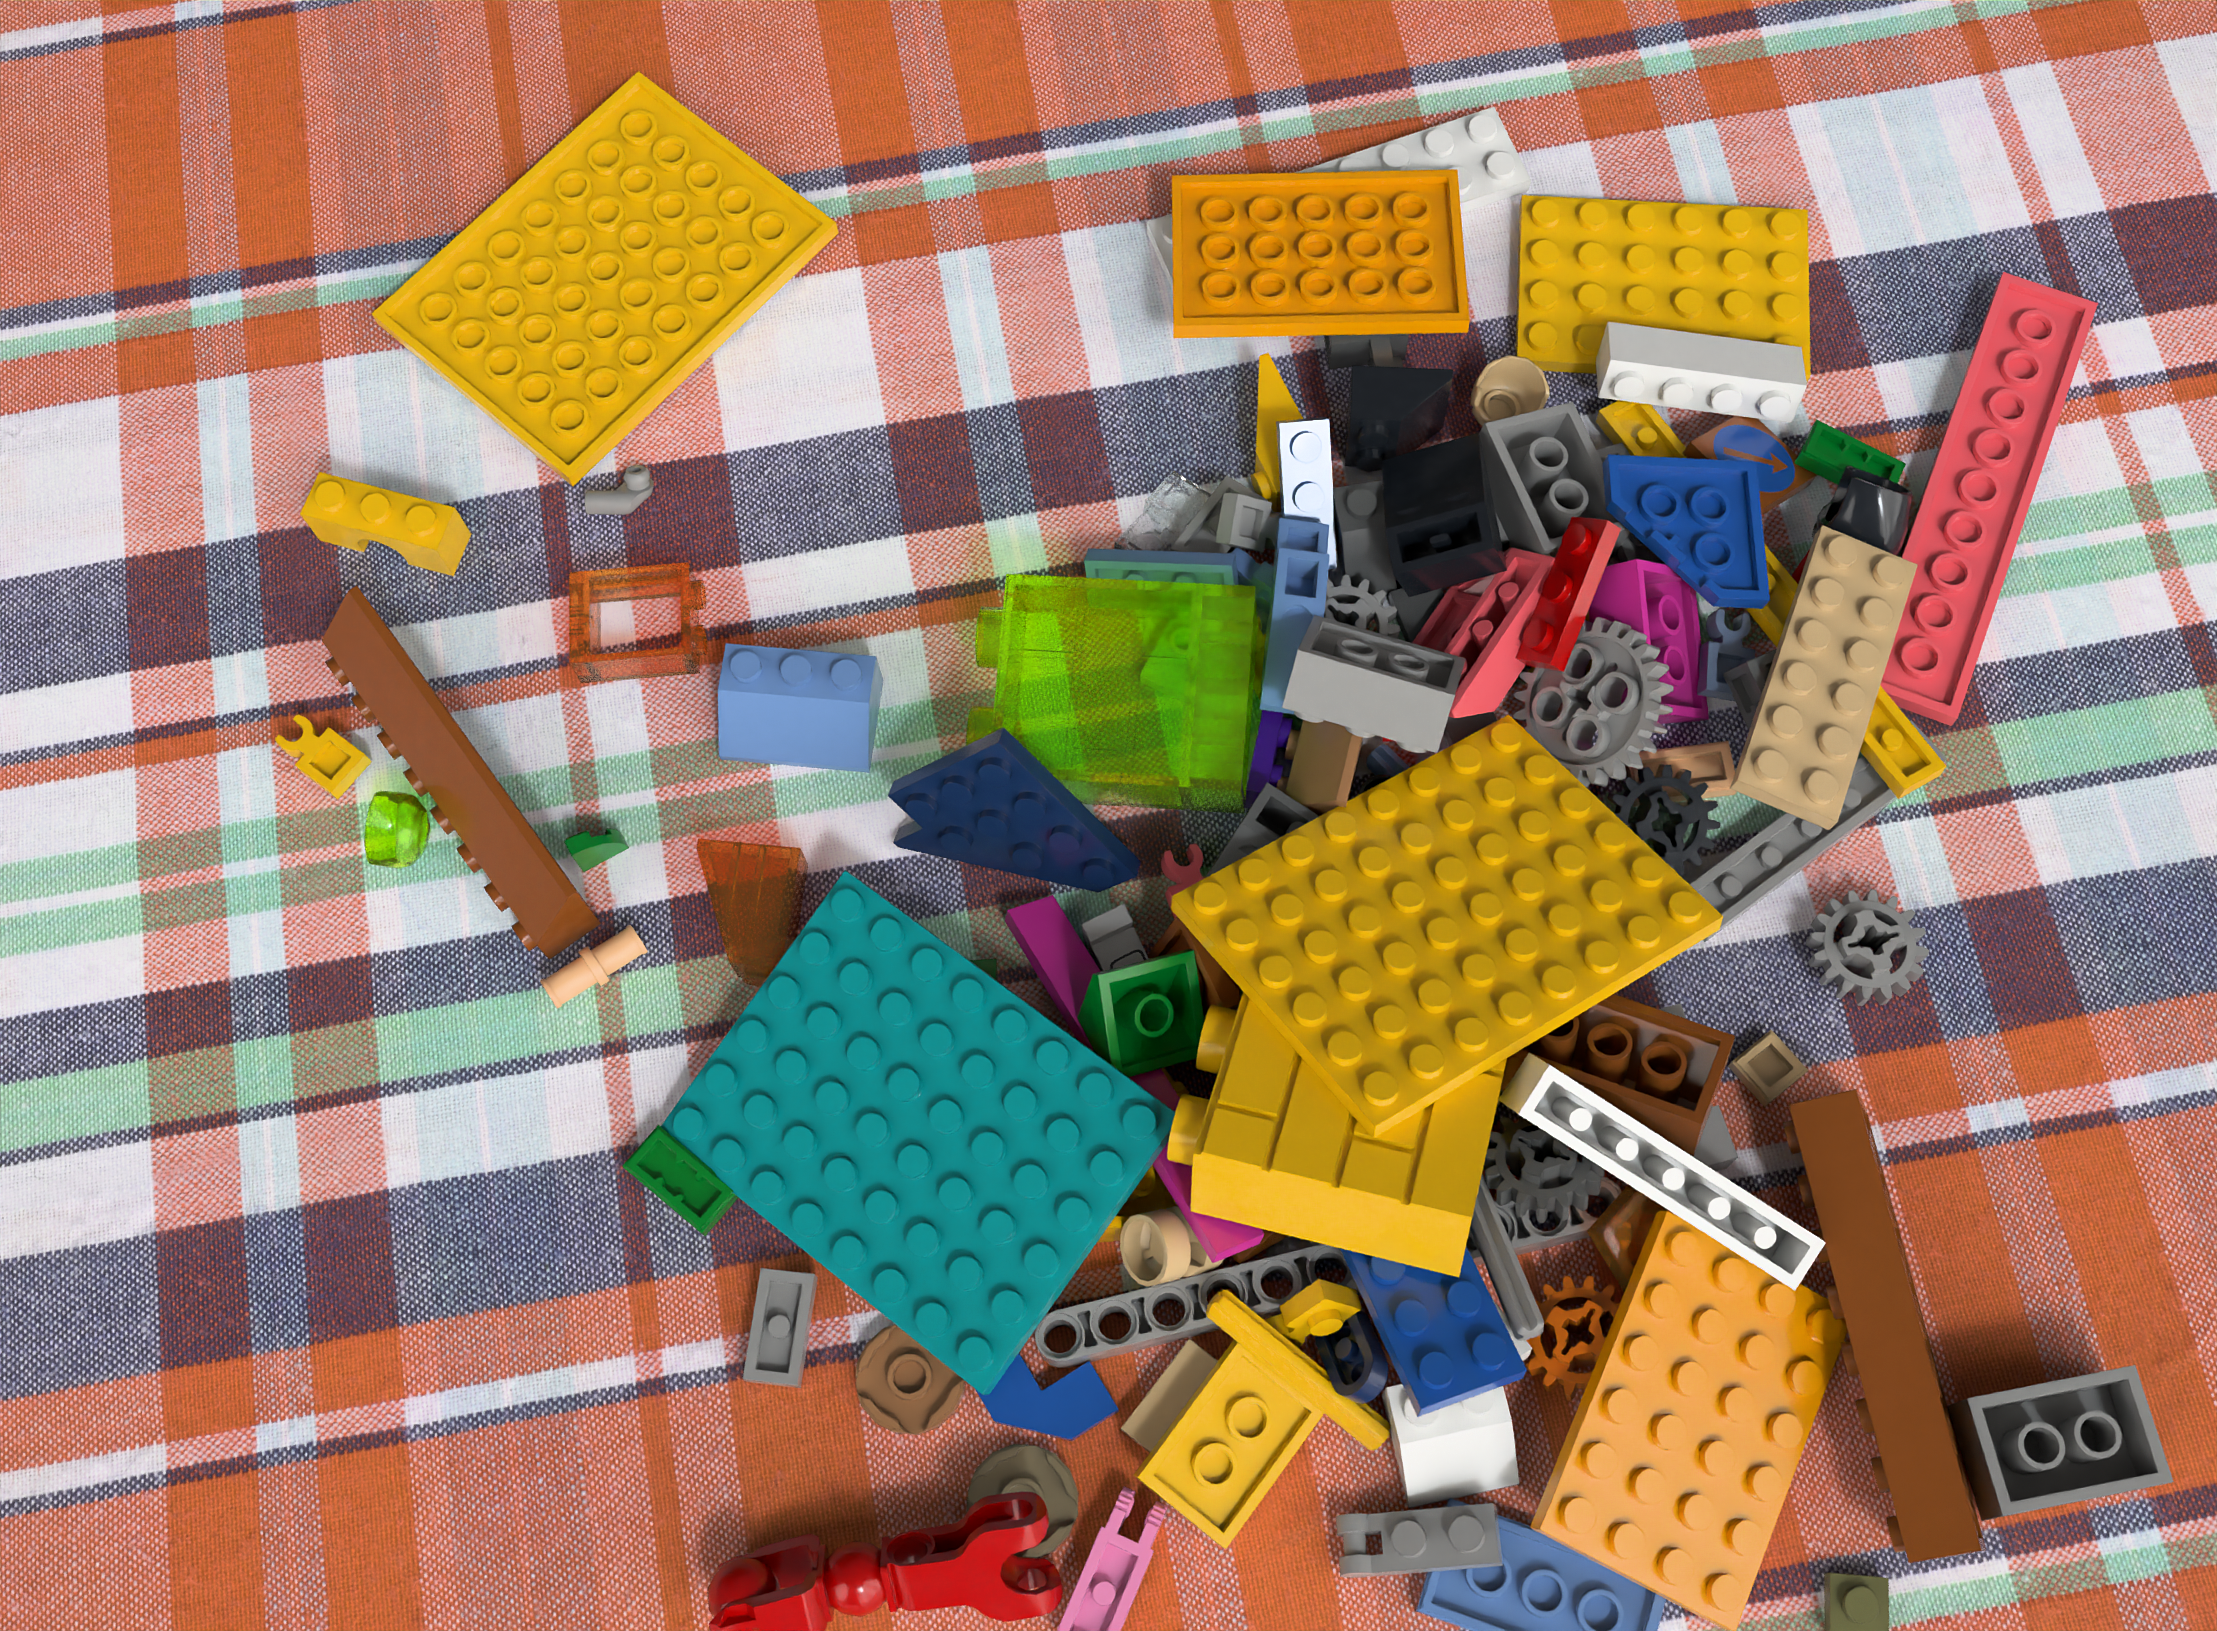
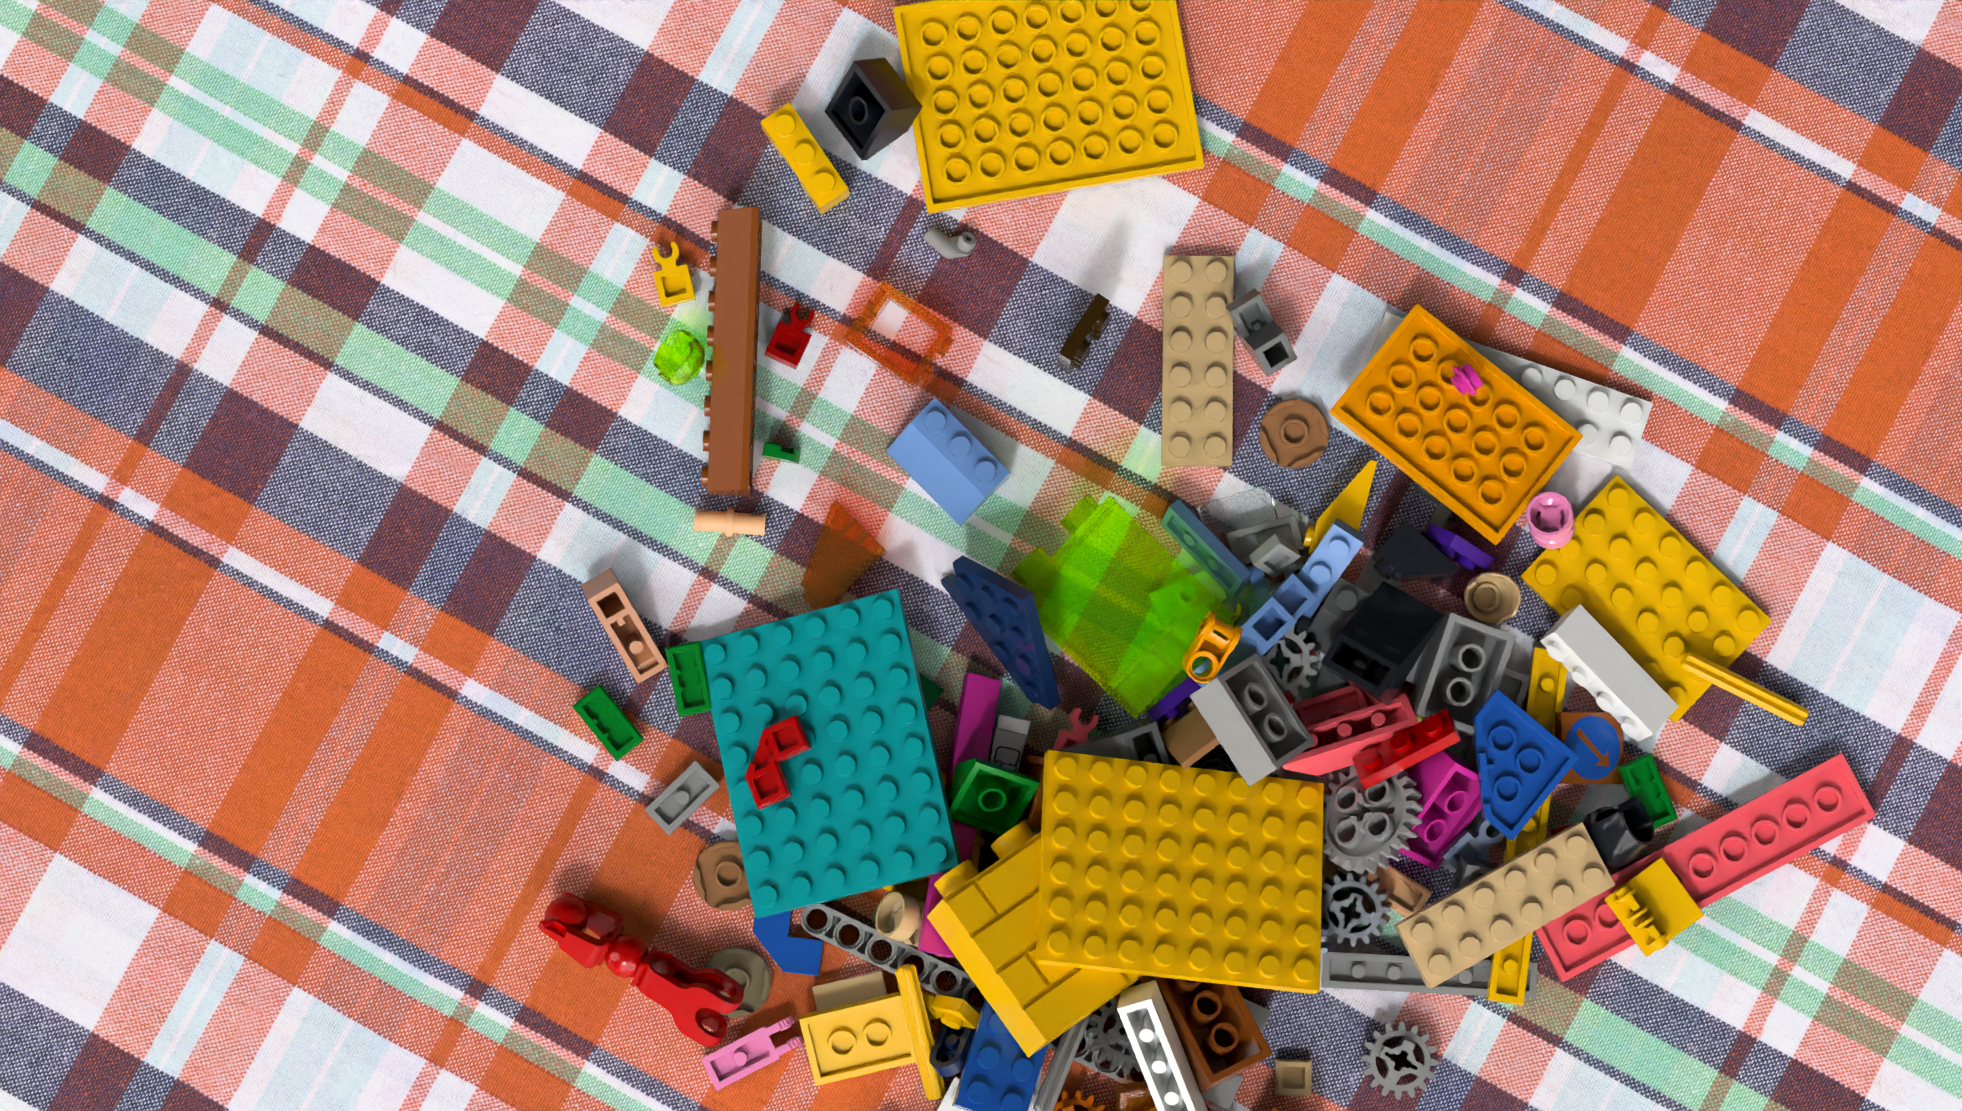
camera: 35 degrees right, 15 degrees up
(421, 418) = (872, 106): none -> black slope
(515, 720) = (789, 340): none -> red plate
(553, 1179) = (624, 625): none -> nougat slope
(619, 1310) = (608, 722): none -> green plate
(841, 452) = (1090, 326): none -> dark brown plate
(843, 1162) = (765, 772): none -> red tile
(992, 415) = (1197, 361): none -> tan plate
(1032, 334) = (1260, 333): none -> dark grey brick
(1155, 407) = (1293, 433): none -> medium nougat tile
(1260, 625) = (1212, 646): none -> light orange piece
(1289, 195) = (1466, 379): none -> dark pink plate
(1429, 354) = (1452, 544): none -> dark purple plate
(1500, 269) = (1550, 520): none -> bright pink wheel
(1846, 286) = (1744, 688): none -> yellow axle
(1976, 562) = (1654, 907): none -> yellow hinge

